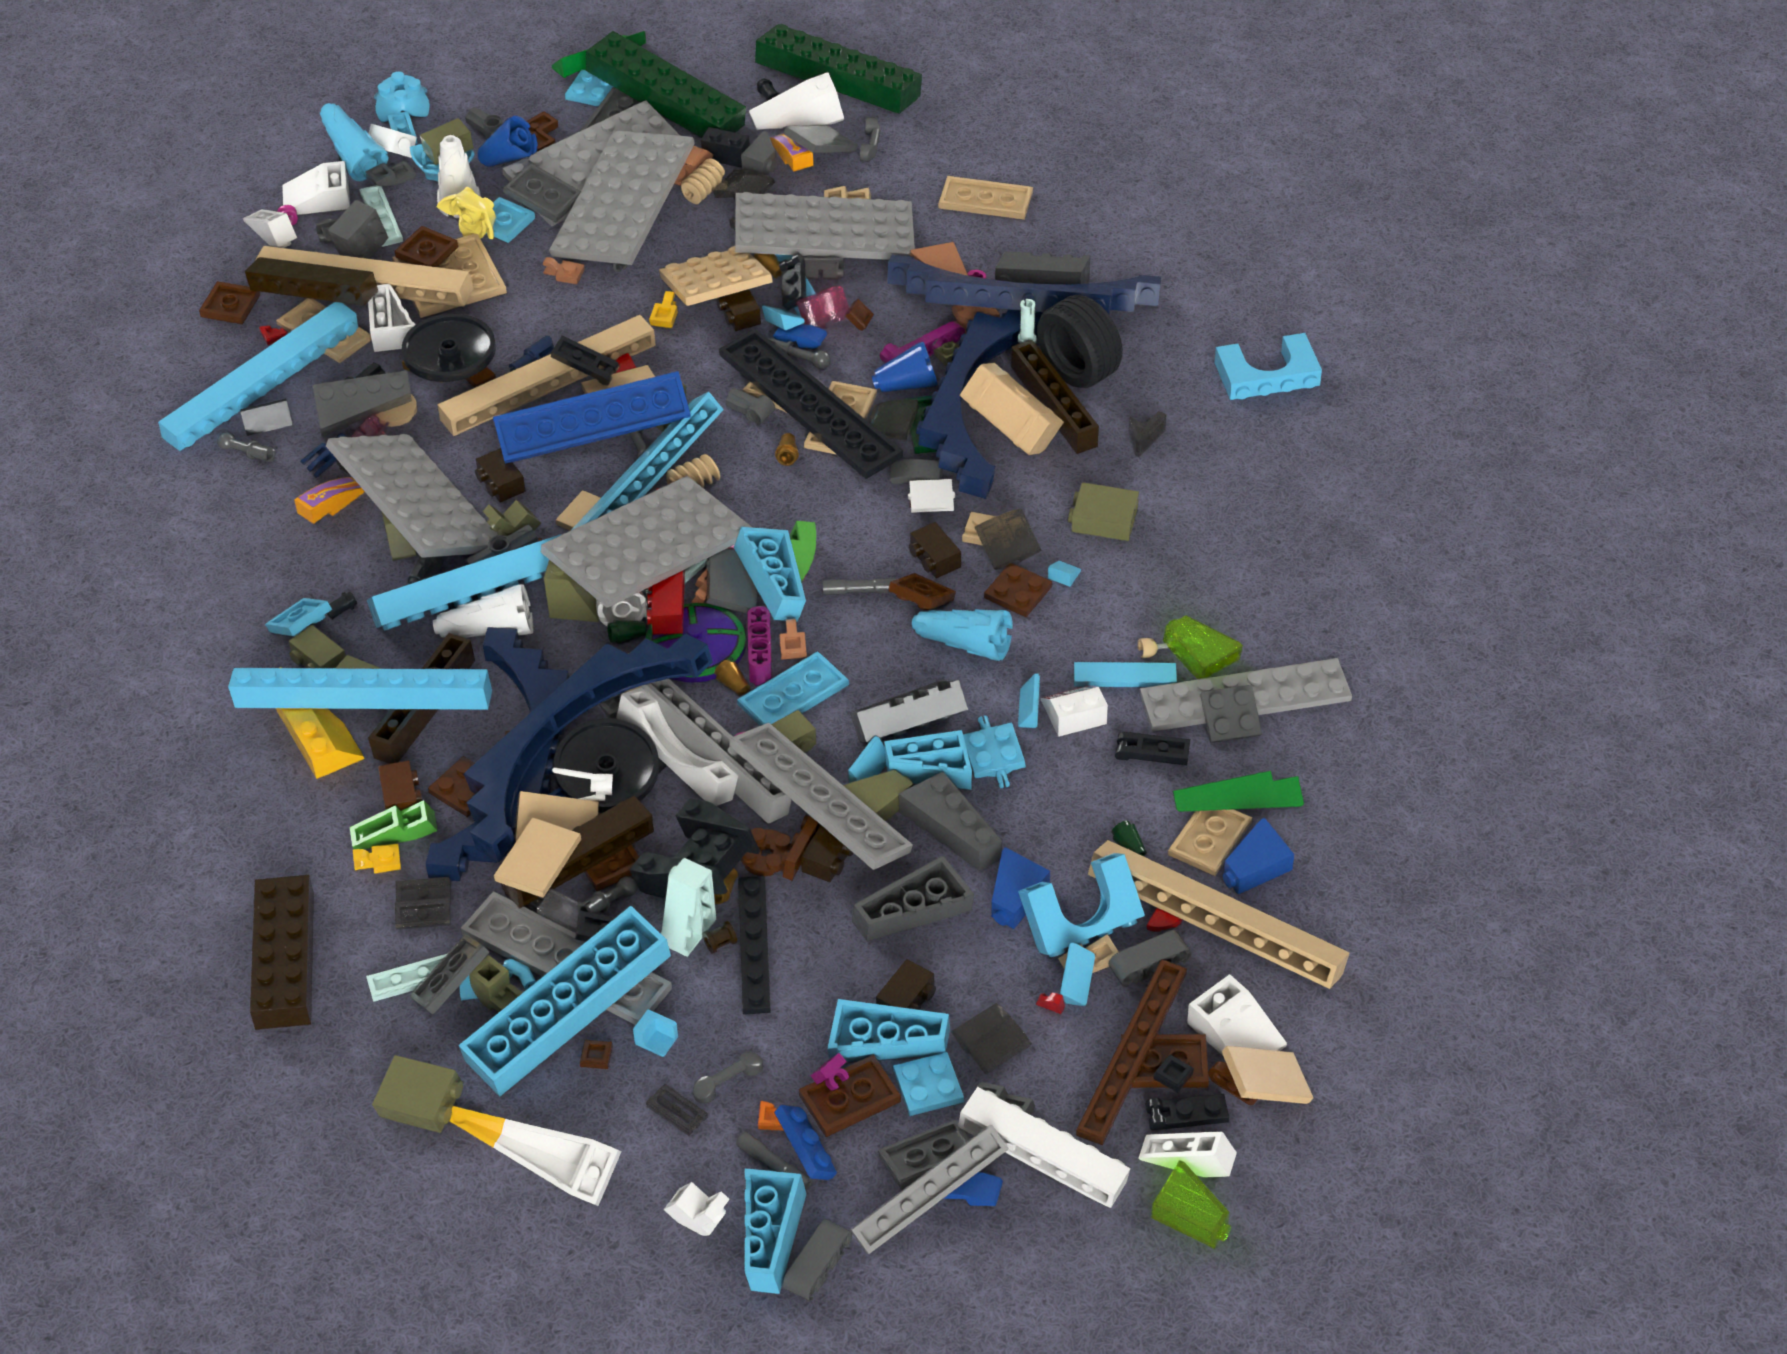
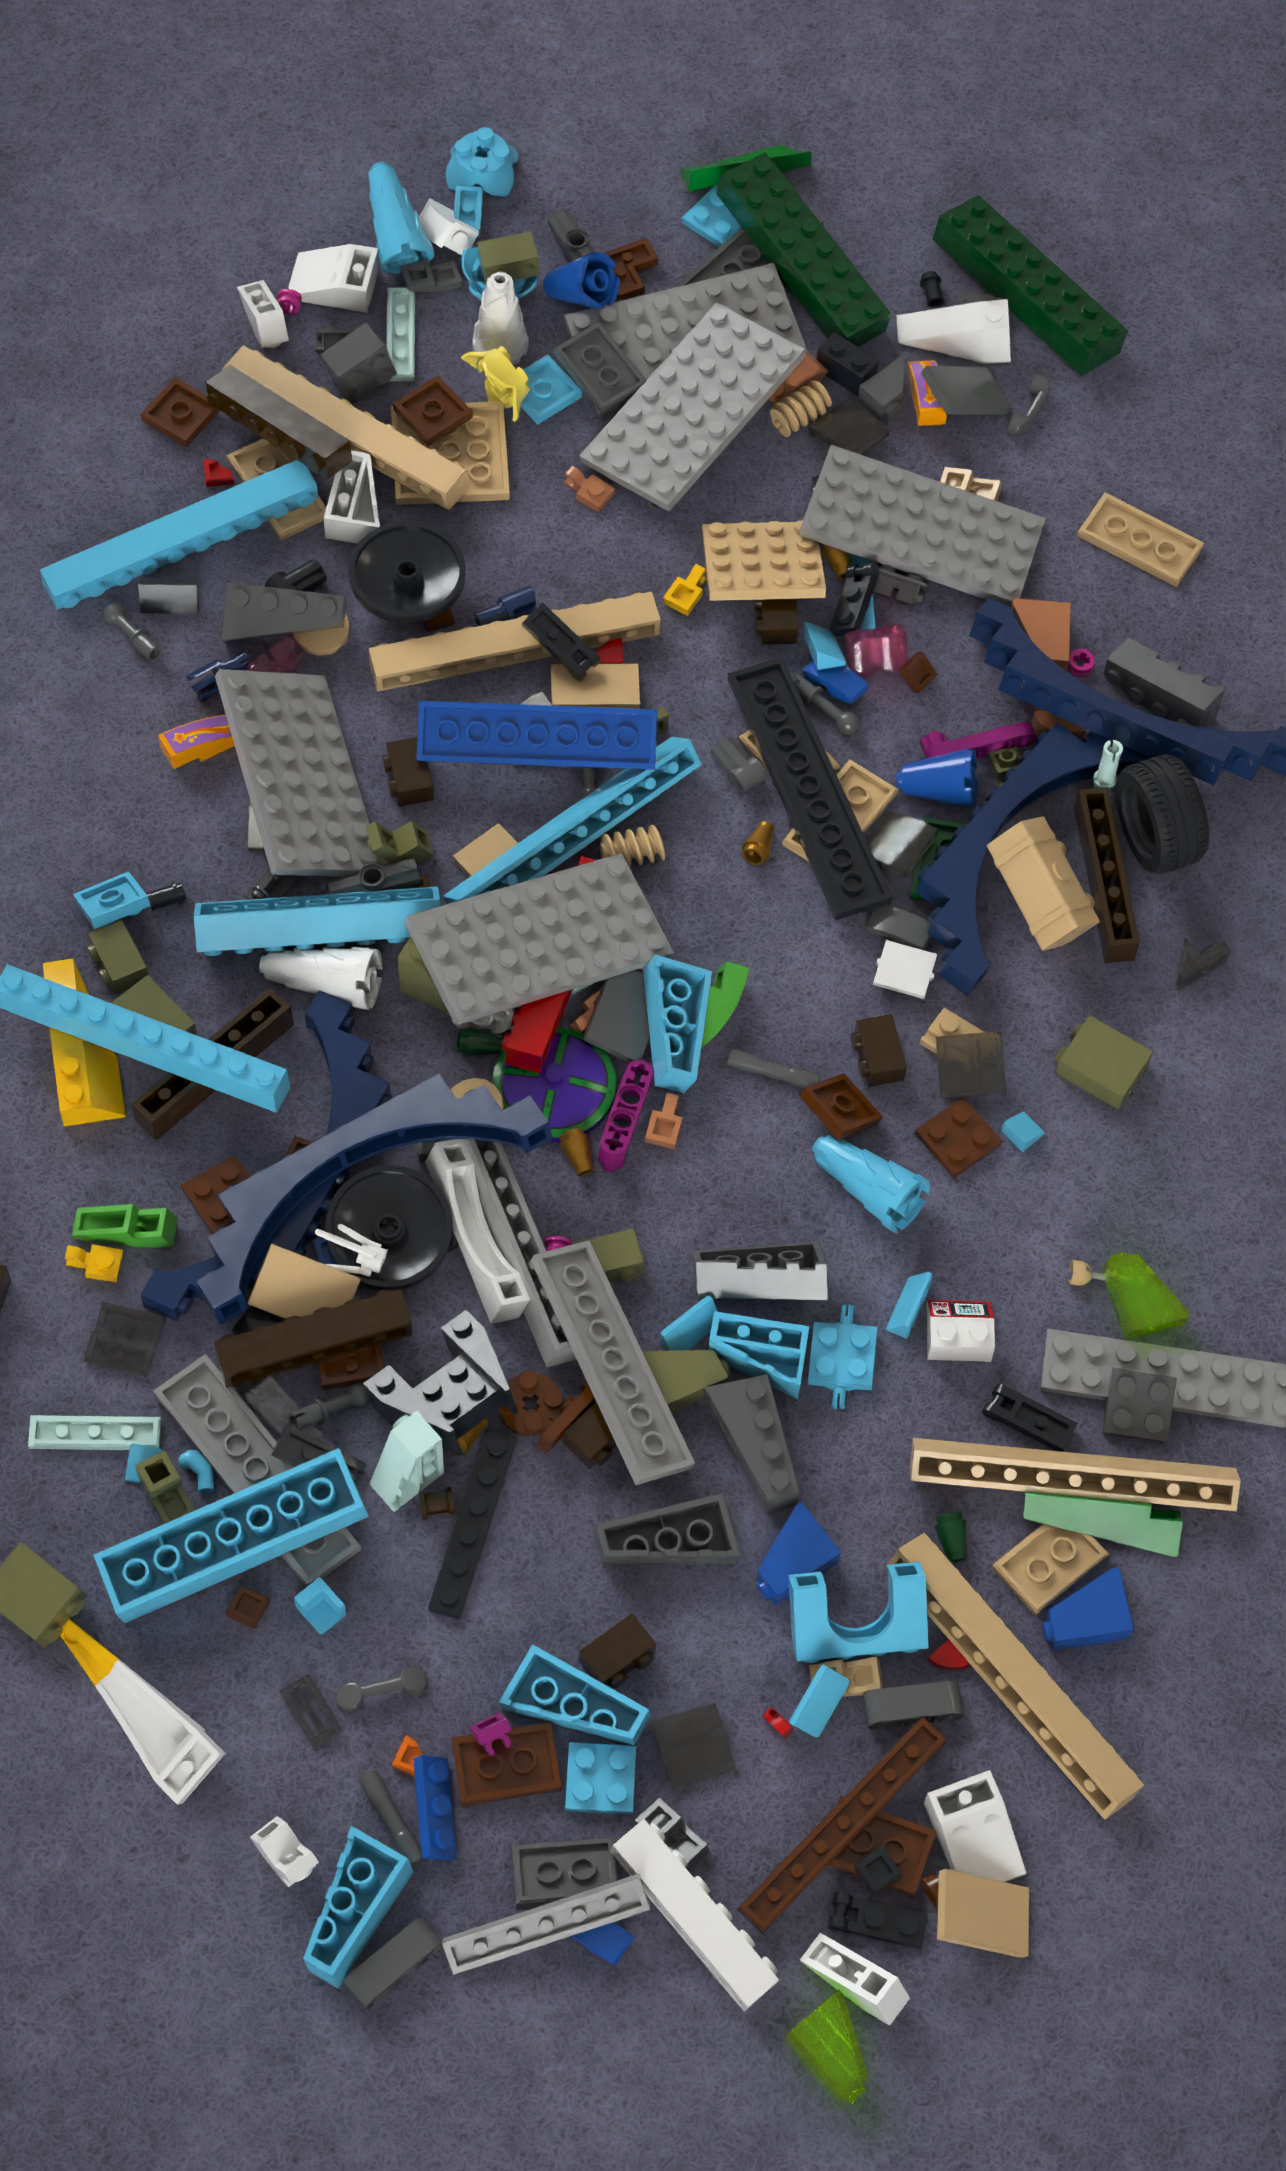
camera: 15 degrees right, 15 degrees up
(398, 785) = (148, 1176): reddish brown brick -> none
(449, 974) = (116, 1454): dark grey tile -> none
(537, 857) = (261, 1339): tan tile -> none
(793, 690) = (641, 1192): medium azure tile -> none
(1123, 674) = (1038, 1301): medium azure tile -> none
(1202, 770) = (1074, 1474): none -> tan brick

